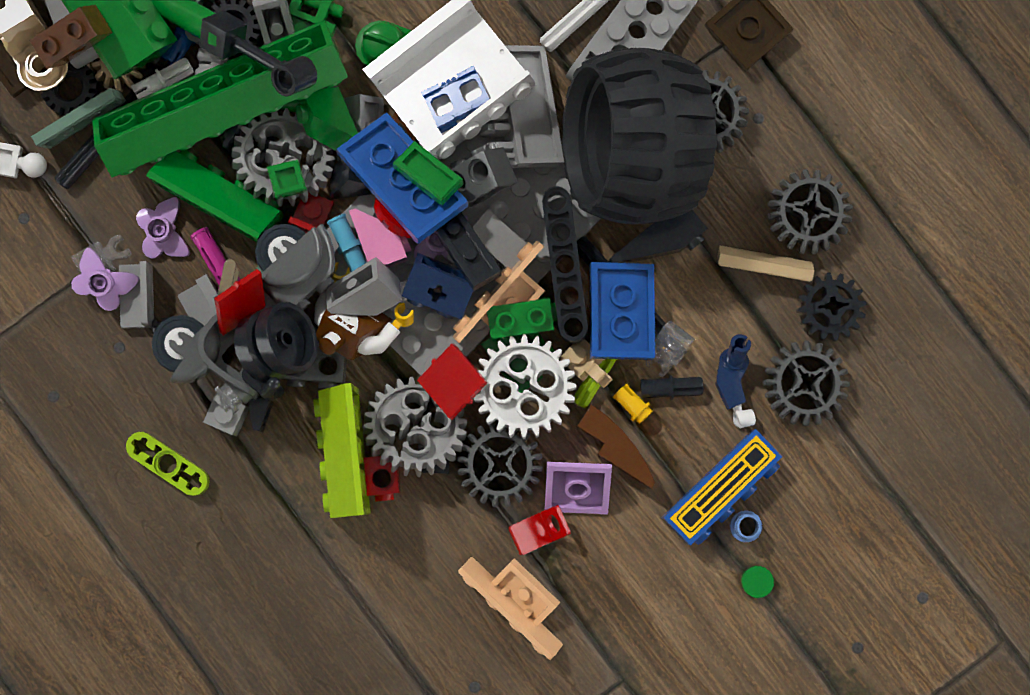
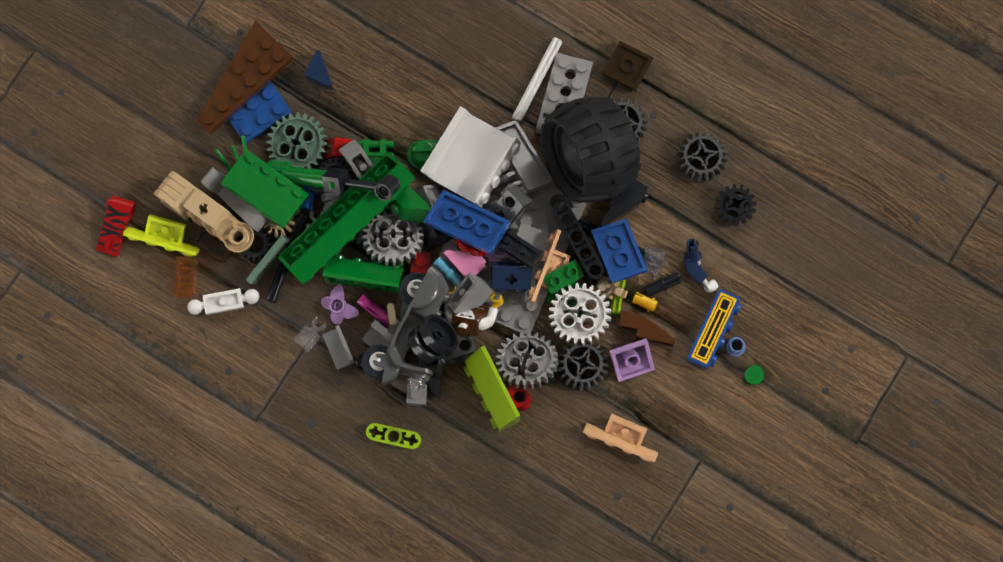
camera: 15 degrees left, 5 degrees down
(71, 36) = (251, 213): reddish brown brick -> none
(101, 281) = (316, 347): lavender animal -> none
(166, 77) = (308, 219): white axle -> none
(239, 301) = (404, 323): red piece -> none
(286, 179) = (401, 248): green tile -> none
(428, 173) = (481, 214): green tile -> none
(452, 381) = (538, 326): red piece -> none
(461, 108) = (475, 163): piece -> none
(538, 530) = (619, 392): red bracket -> none
(765, 263) = (688, 194): tan tile -> none
(828, 367) = (747, 239): dark grey gear -> none

